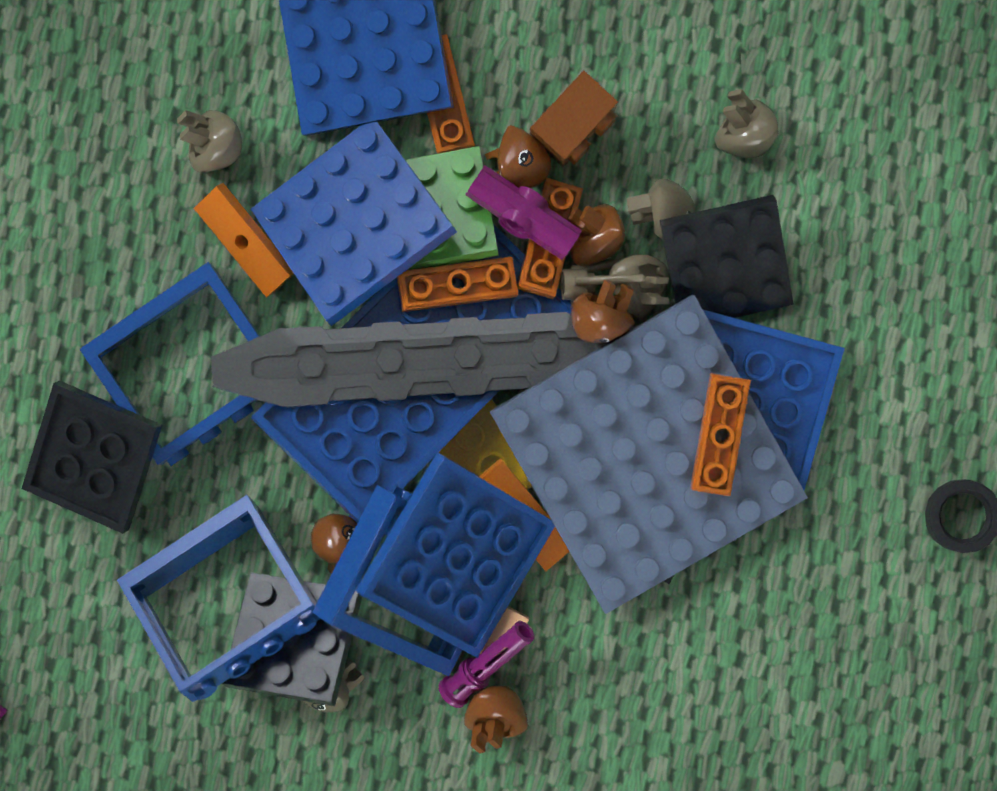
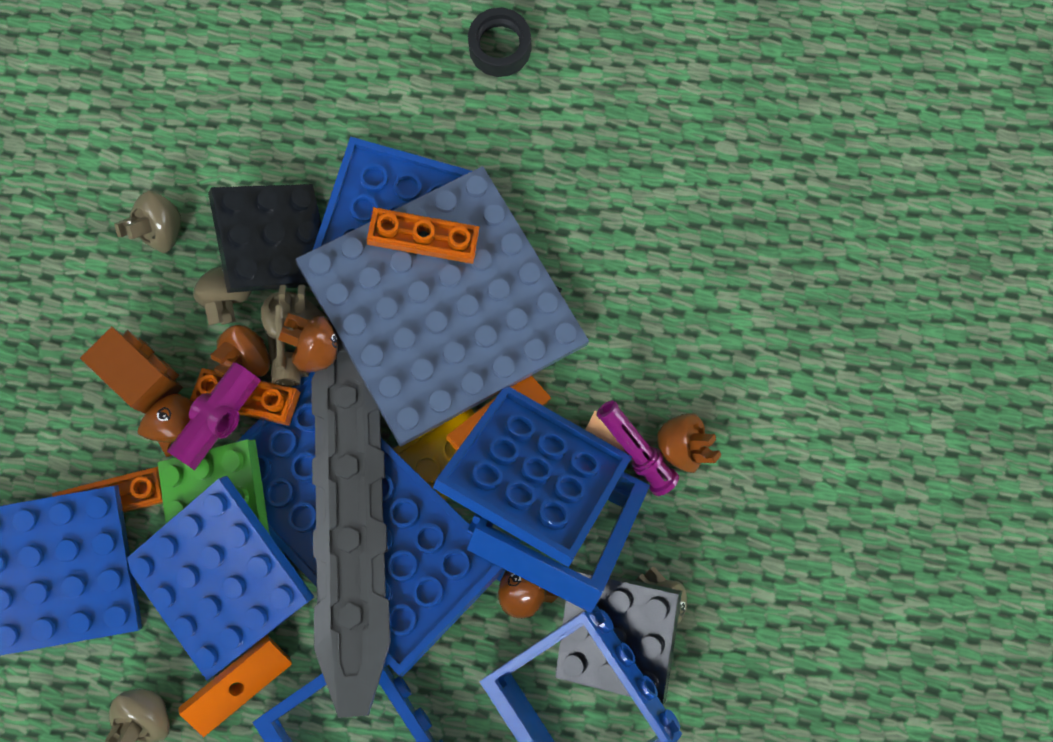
camera: 85 degrees left, 10 degrees down
(434, 288) = (284, 498): orange tile -> none

